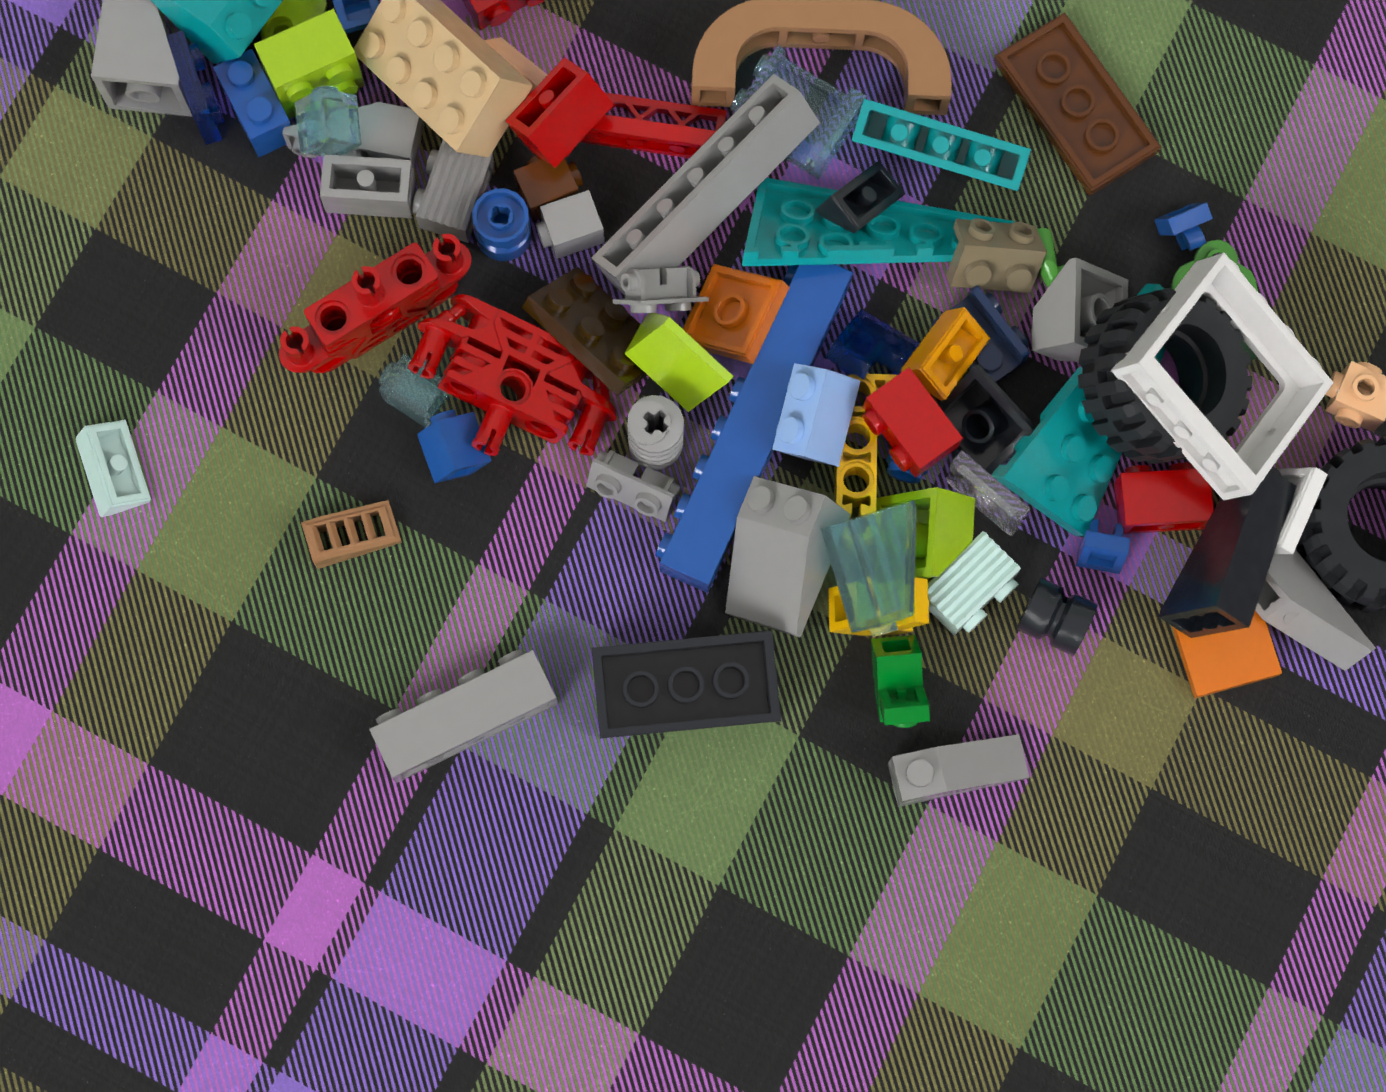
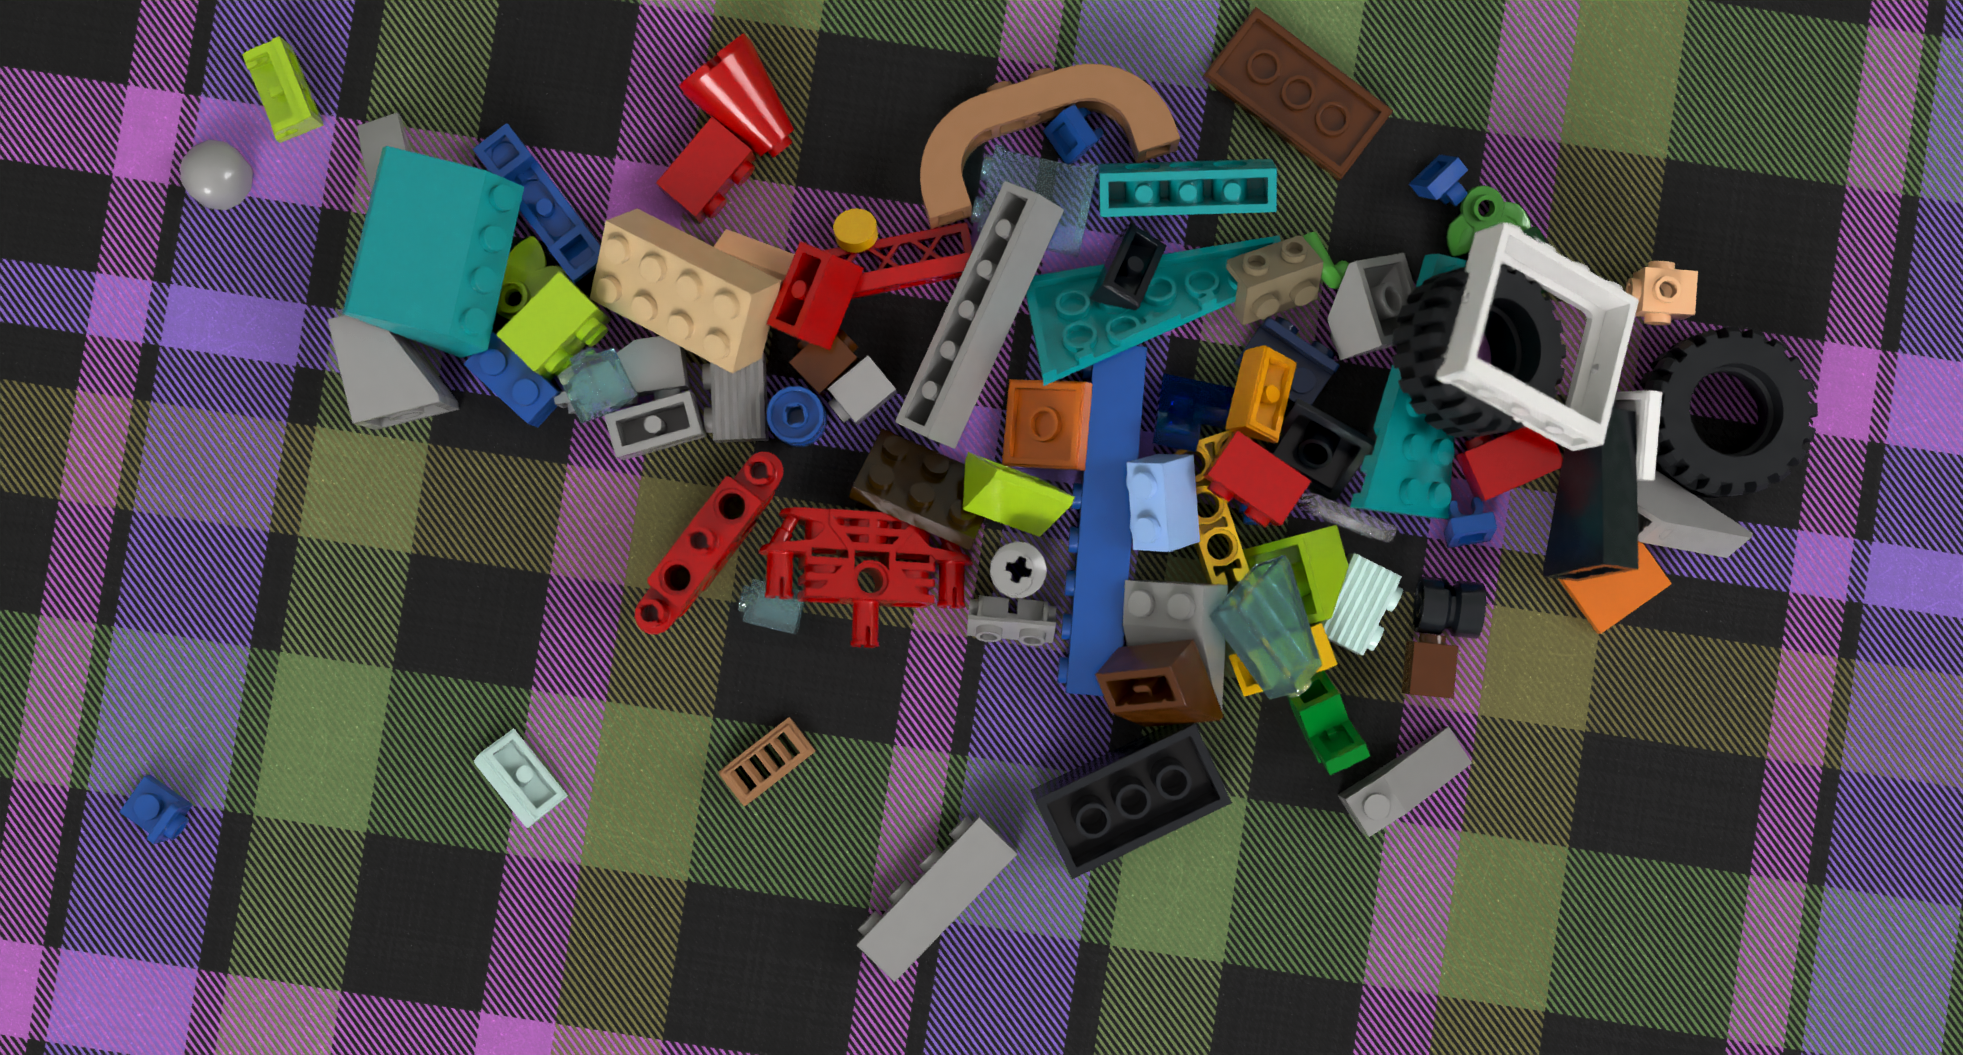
camera: 20 degrees left, 10 degrees up
(200, 97) = (466, 403): clear blue plate -> none
(449, 446) = (829, 649): blue brick -> none
(620, 81) = (855, 230): none -> yellow tile
(645, 292) = (962, 440): light grey hinge -> none
(750, 582) = (1159, 684): none -> reddish brown slope
(853, 64) = (1072, 134): none -> blue tile
(1019, 666) = (1430, 667): none -> reddish brown brick

